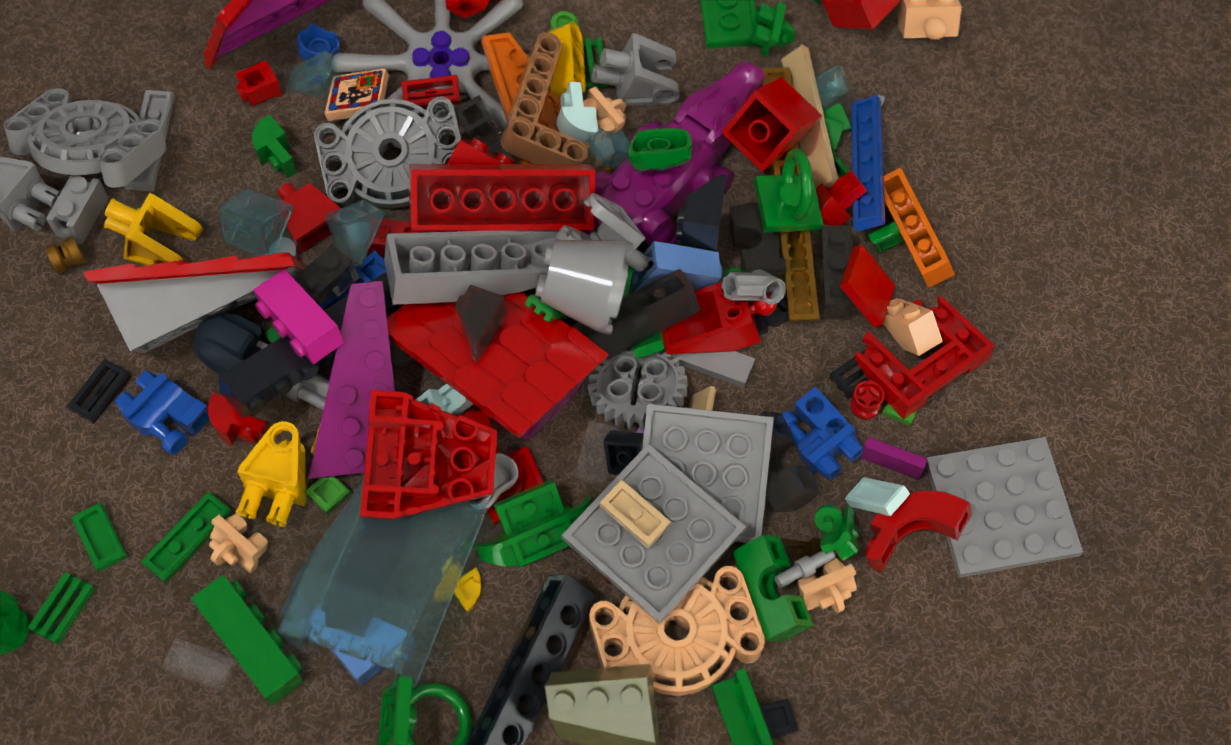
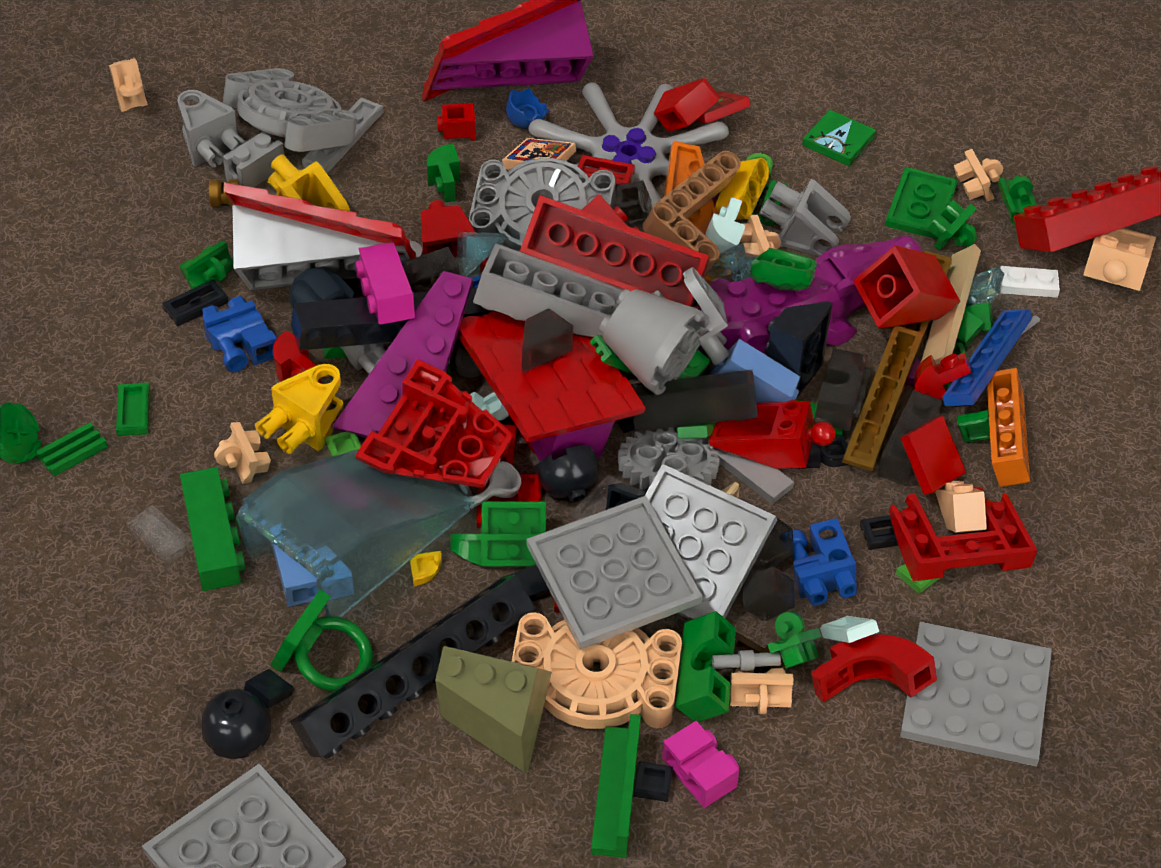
camera: 25 degrees right, 15 degrees down
(93, 347) = (208, 266): none -> green hips
(185, 538) = (200, 436): green tile -> none
(254, 221) = (398, 209): clear light blue slope -> none
(312, 76) = (509, 132): clear light blue slope -> none
(558, 439) = (569, 474): none -> black cylinder
(571, 564) = (533, 582): none -> black tile
(634, 514) = (601, 542): tan plate -> none
(753, 286) = (814, 408): light grey piece -> none
(789, 199) = (891, 357): green tile -> none
(811, 686) = (699, 764): none -> dark pink brick
(861, 60) = (1030, 281): none -> white plate
(871, 395) = (884, 552): red wheel -> none
(893, 458) = (884, 608): magenta tile -> none

